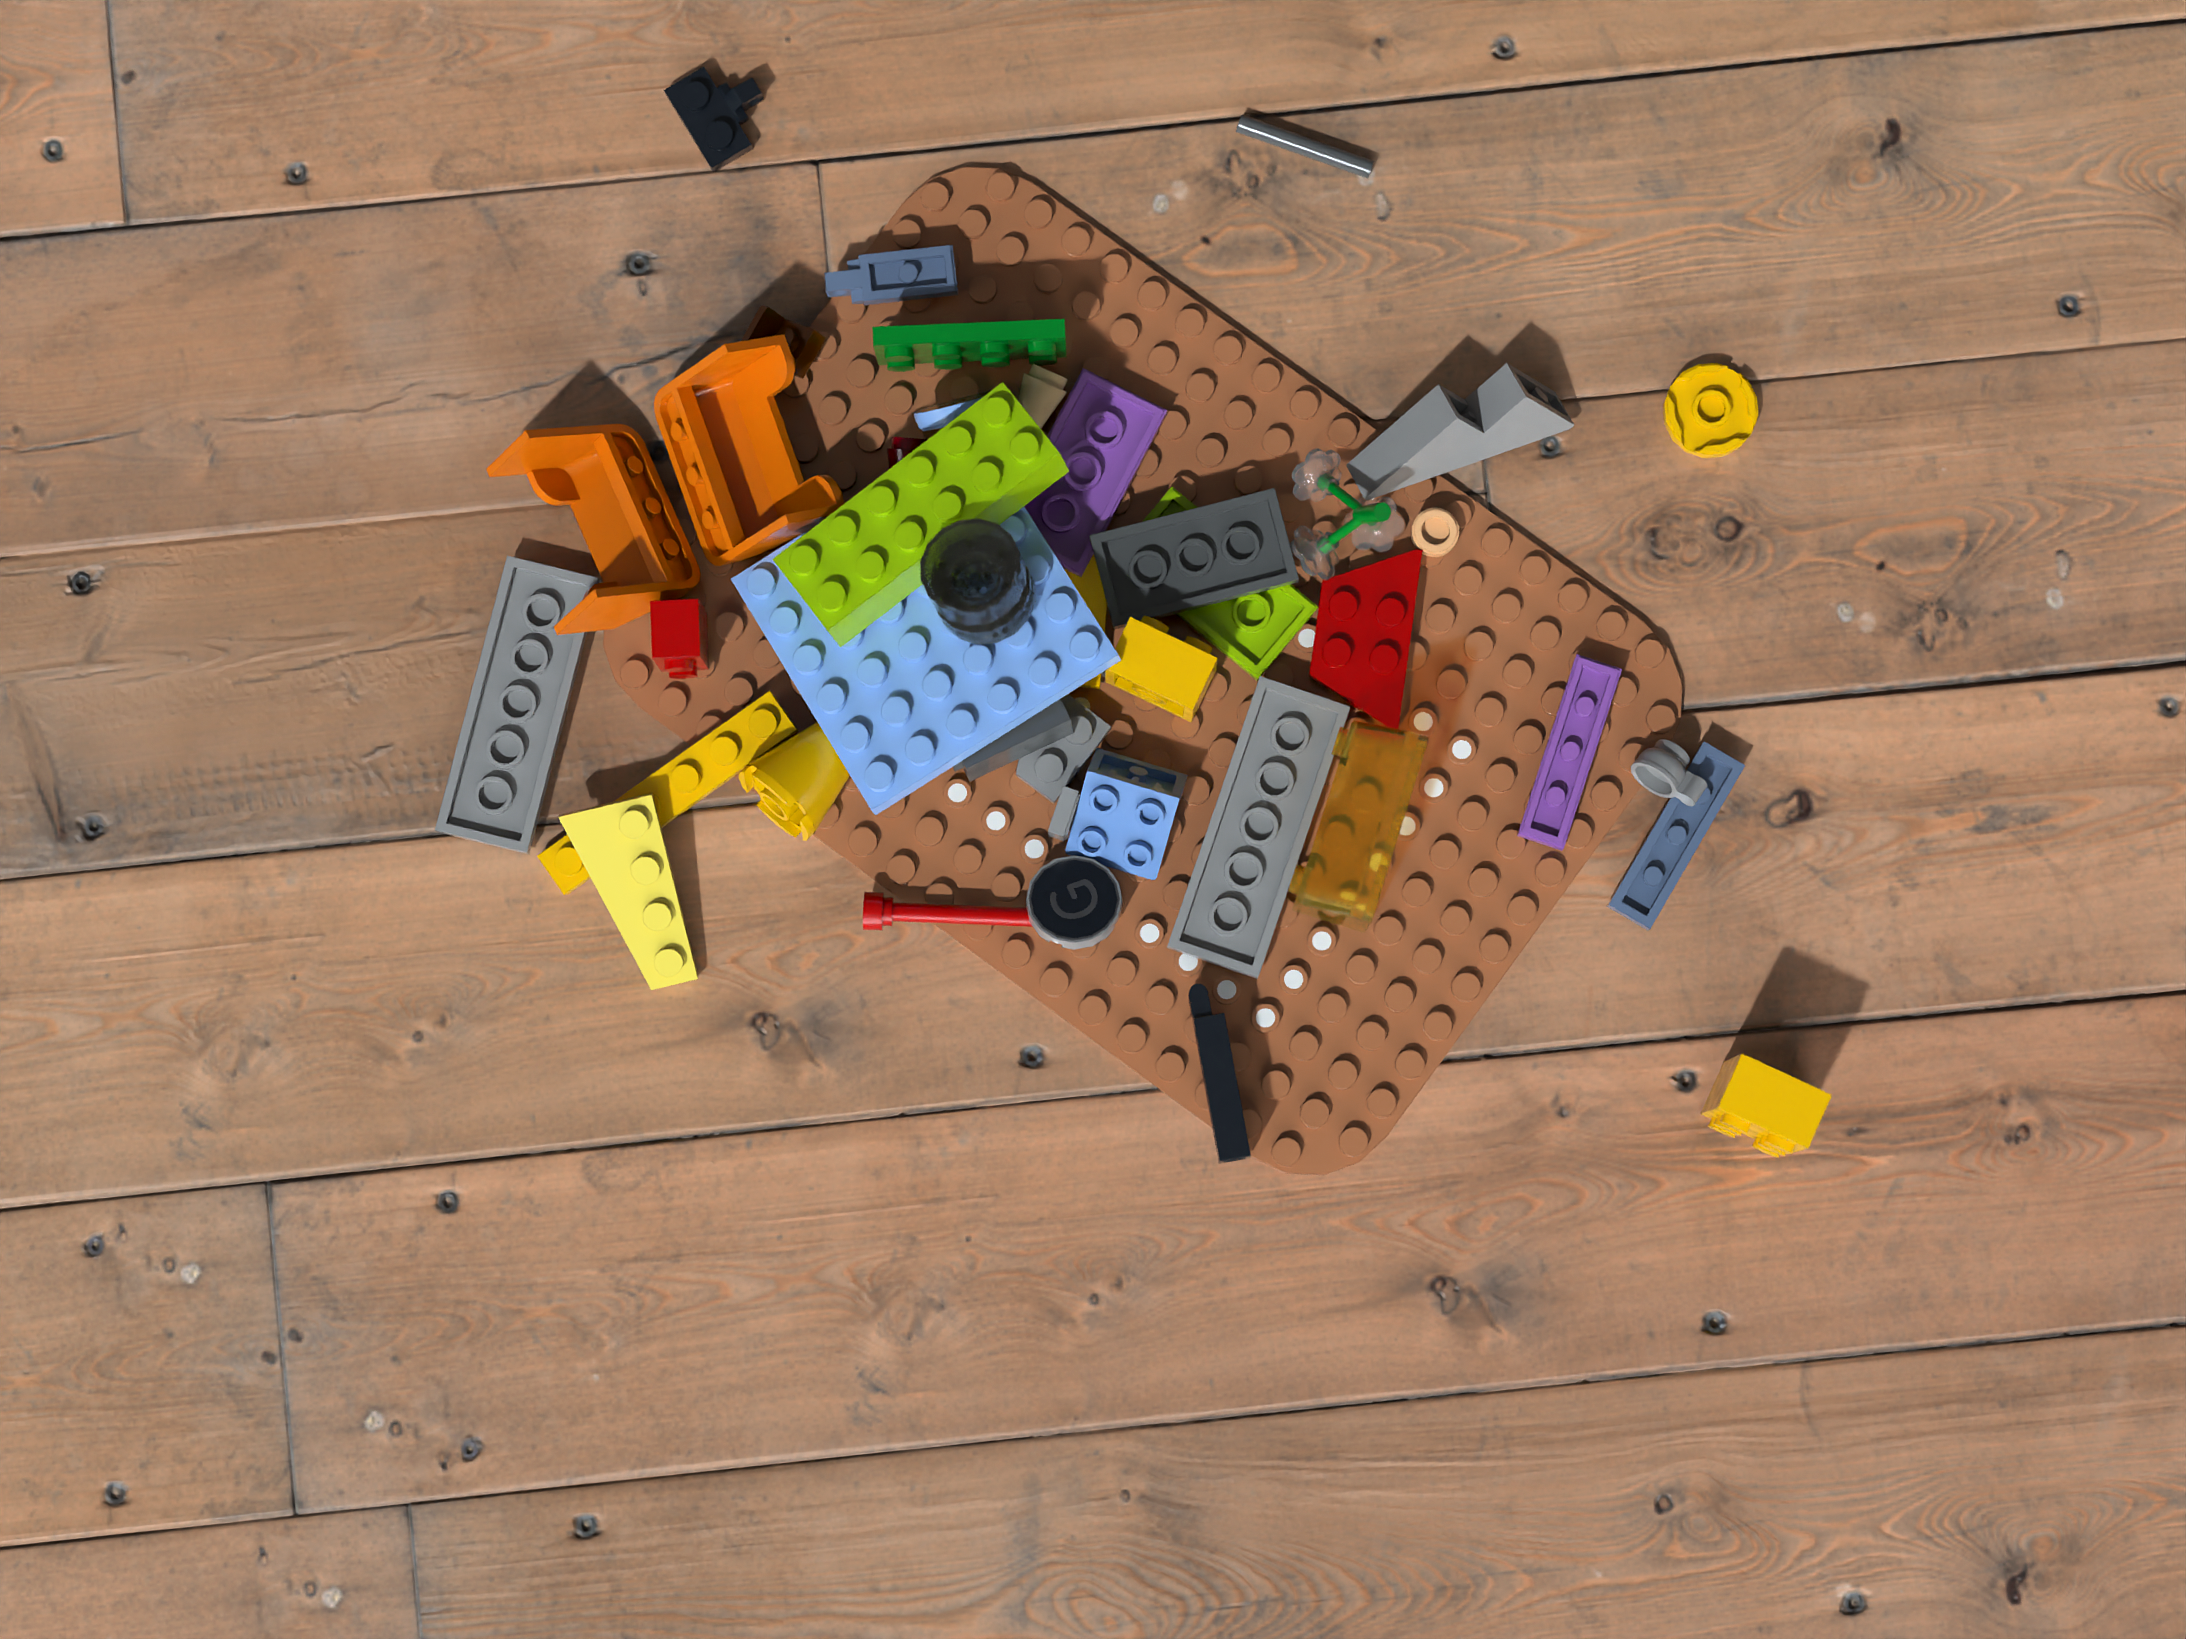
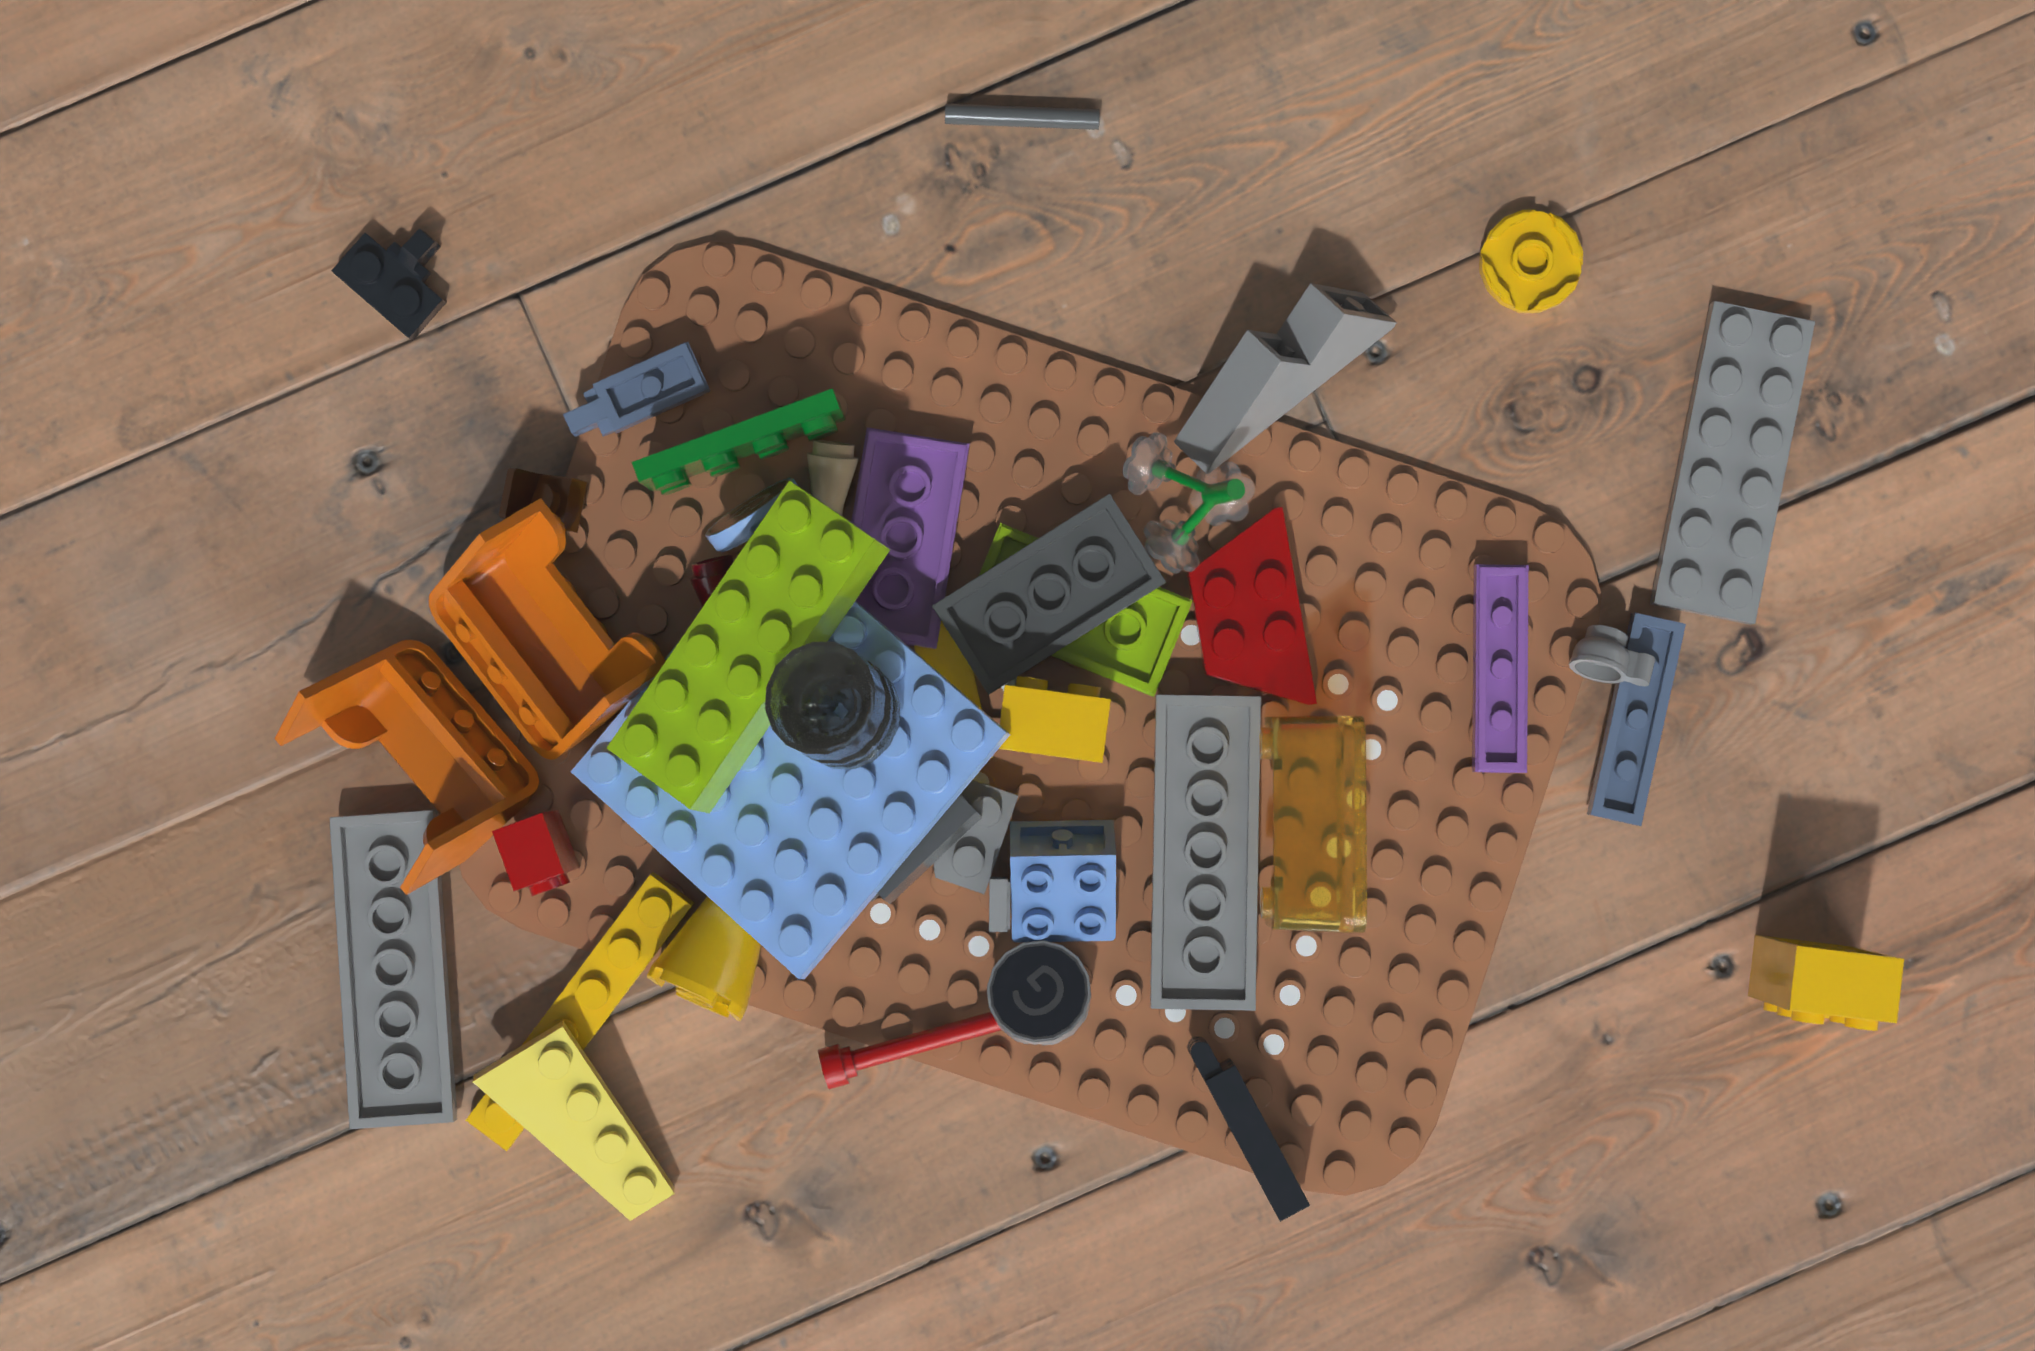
camera: 30 degrees left, 5 degrees up
(1435, 532) = (1288, 482): light nougat tile -> none
(1832, 641) = (1732, 462): none -> light grey plate

